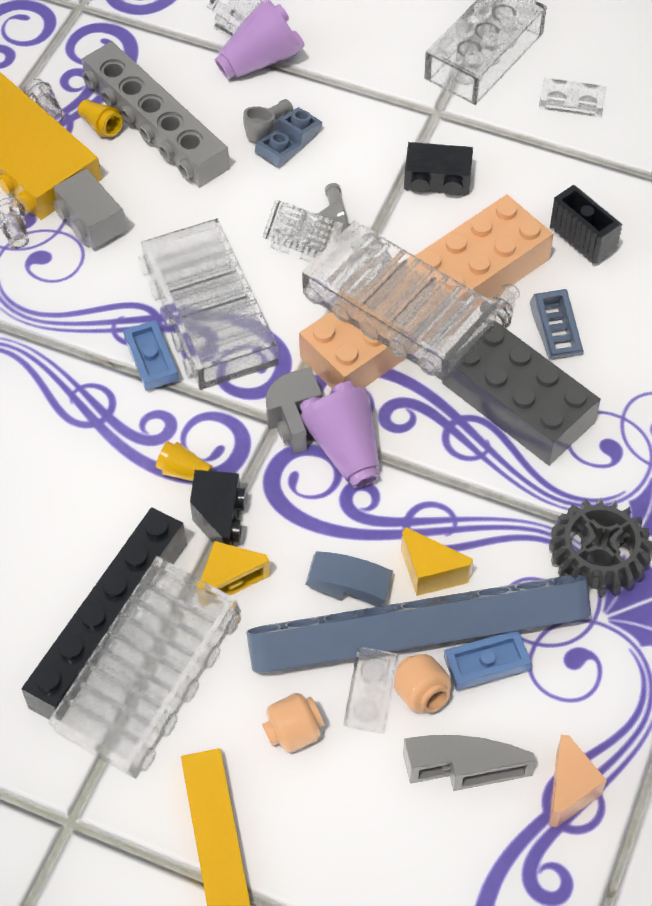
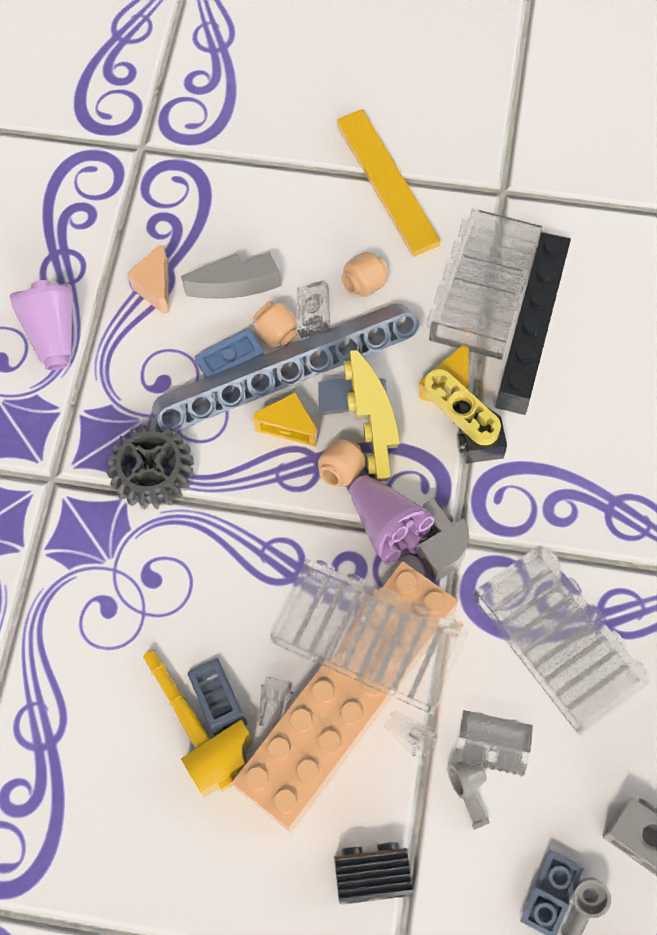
camera: 170 degrees right, 10 degrees up
(150, 355) = (593, 570): medium blue plate -> none
(180, 462) = (524, 467): yellow cone -> none
(231, 527) = (484, 417): none -> light yellow beam
(334, 533) = (371, 403): none -> light yellow slope
(381, 504) = (341, 463): none -> light nougat head
(525, 394) = (230, 598): dark grey brick -> none
(573, 269) = (214, 760): none -> yellow piece
(585, 224) = (201, 819): black brick -> none

